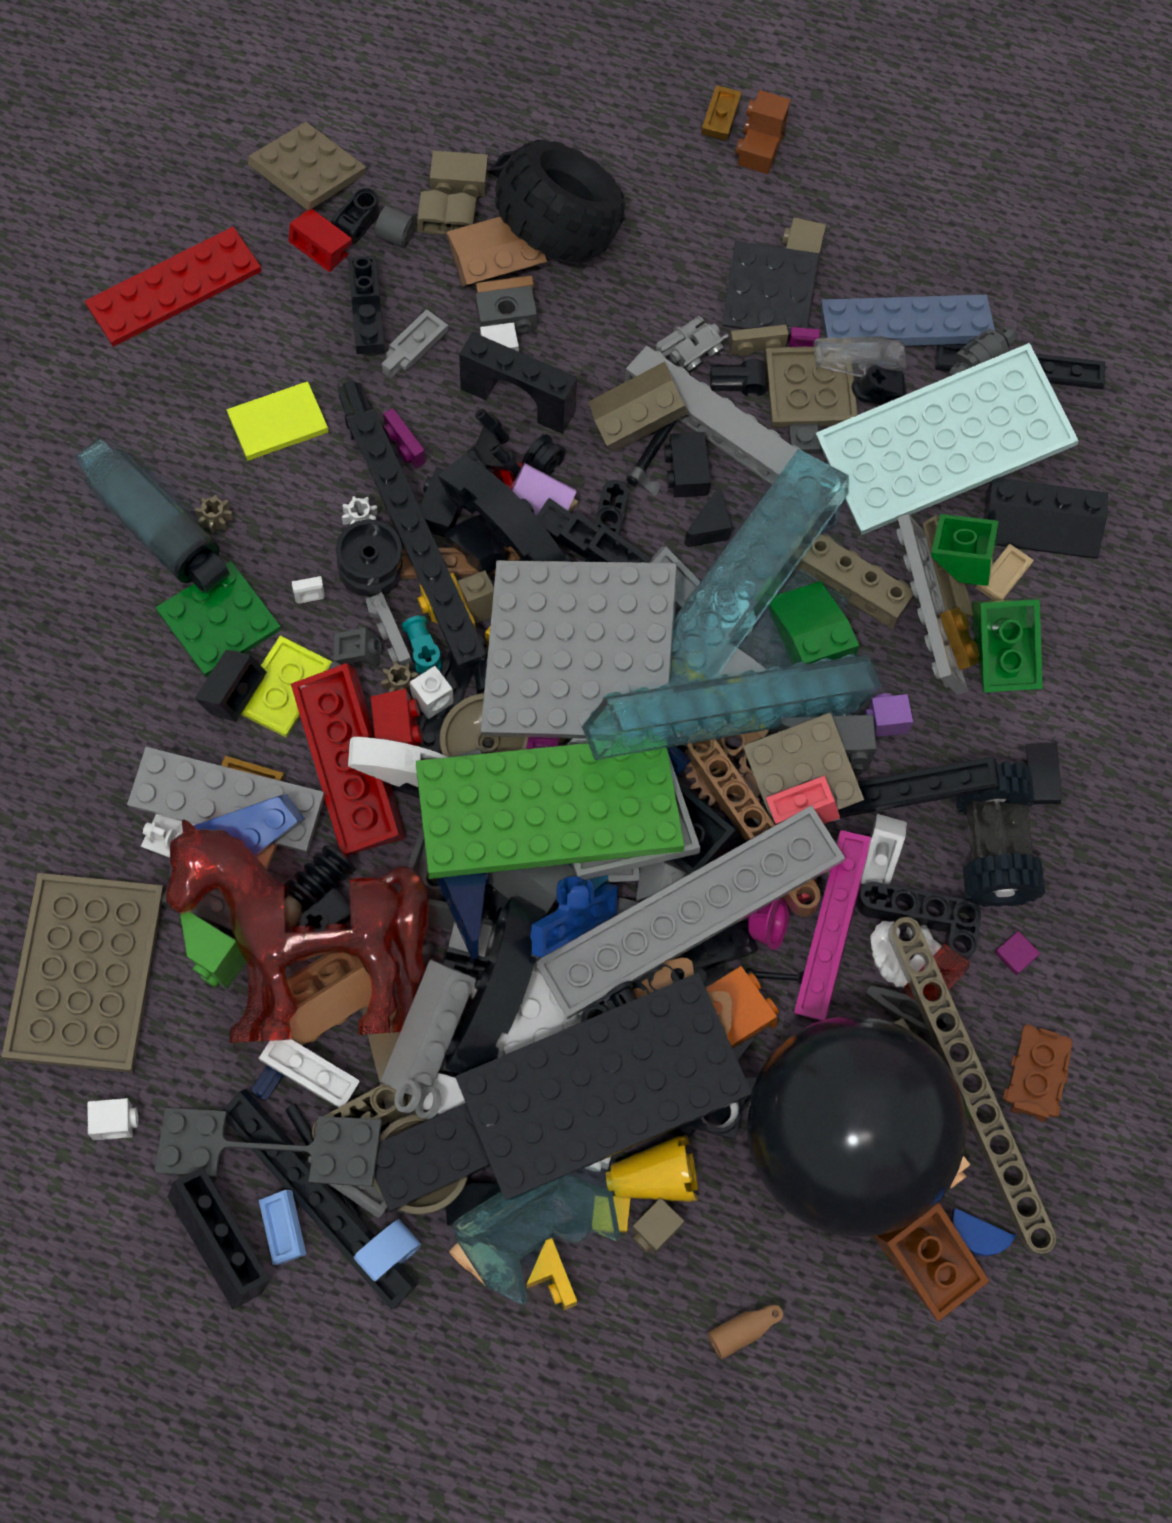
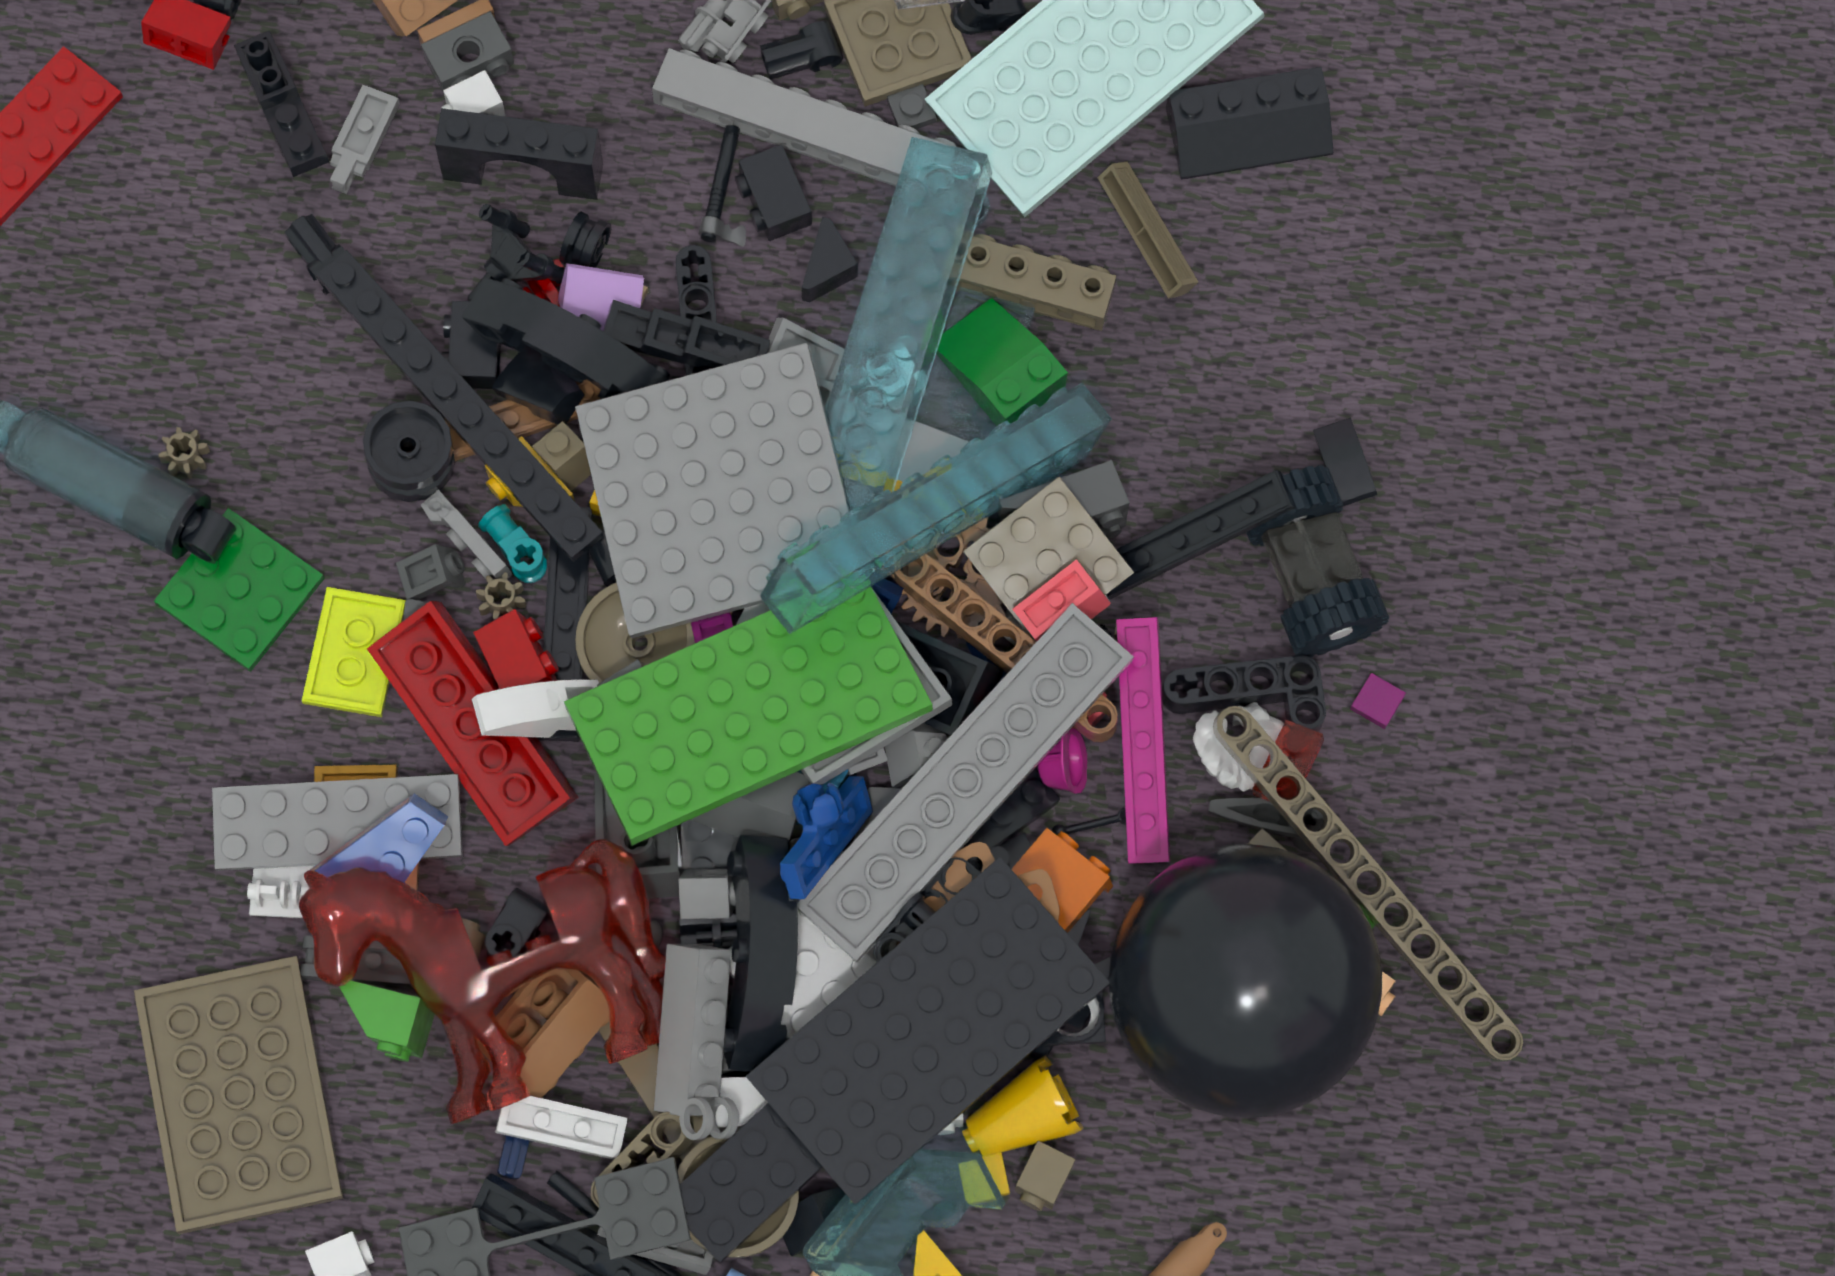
camera: 15 degrees left, 5 degrees up
(230, 685) = (289, 673): black brick -> none
(277, 421) = (219, 299): neon yellow tile -> none
(308, 589) = (342, 516): white tile -> none
(319, 876) = (488, 881): black piece -> none
(357, 506) = (377, 385): white gear -> none
(408, 447) = (405, 282): magenta plate -> none
(431, 692) = (548, 602): white brick -> none
(466, 903) = (686, 859): dark blue slope -> none
(638, 407) = (684, 136): dark tan slope -> none
(884, 850) = (1178, 623): white slope -> none
(890, 714) = (1131, 447): medium lavender brick -> none
(927, 589) = (1146, 297): light grey plate -> none
(934, 1261) = (1387, 1110): dark orange slope -> none
(956, 629) = (1196, 328): pearl gold plate -> none
(966, 547) = (1162, 197): green slope -> none
(979, 1235) = (1431, 1062): blue tile -> none
(1006, 573) = (1221, 212): tan tile -> none
(1008, 644) = (1253, 305): green slope -> none
(1038, 1073) = (1446, 841): dark orange piece -> none

